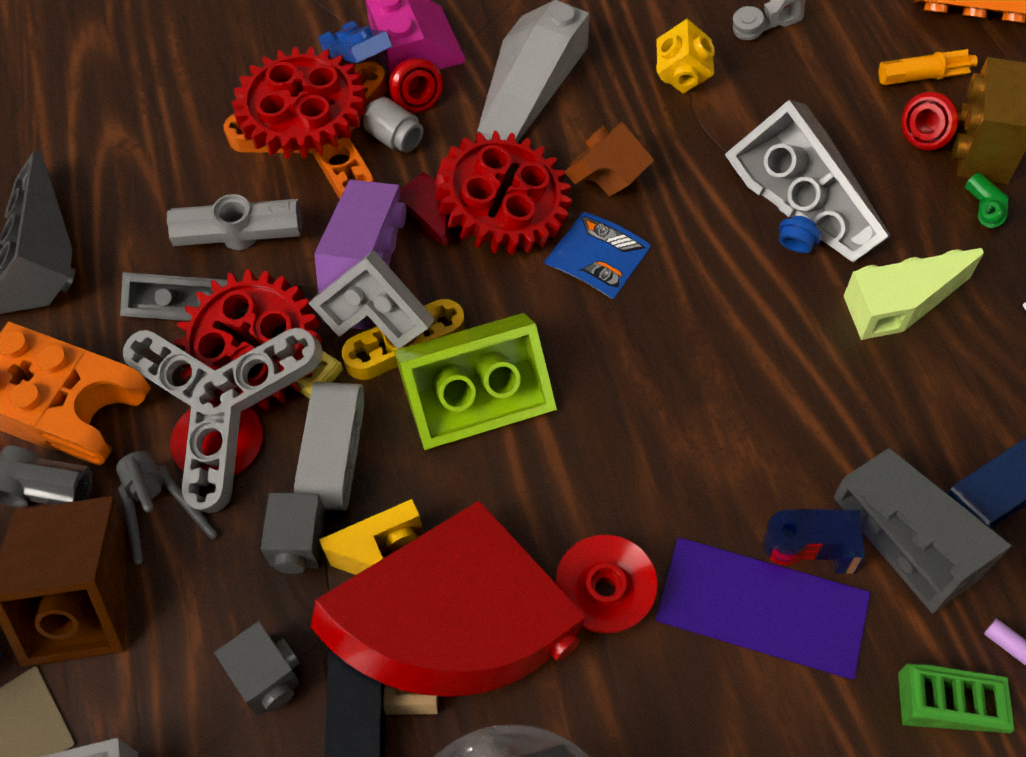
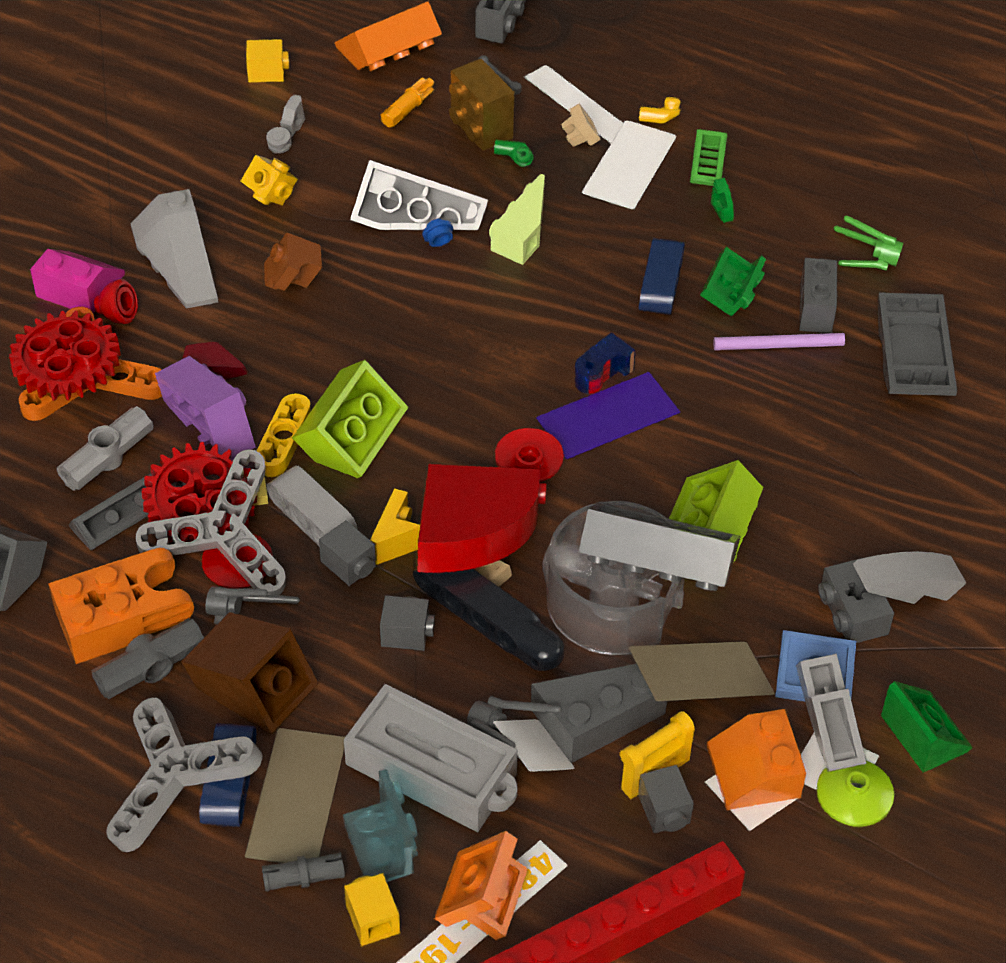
camera: 50 degrees left, 10 degrees down
(354, 42) = (66, 298): blue plate -> none
(374, 292) = (252, 410): light grey plate -> none
(392, 125) = (135, 332): light grey brick -> none
(474, 177) = (250, 321): red gear -> none
(598, 253) = (336, 319): blue sticker -> none
(913, 699) = (721, 399): bright green slope -> none
(920, 529) = (646, 320): dark grey wedge -> none
(930, 120) = (444, 128): red brick -> none

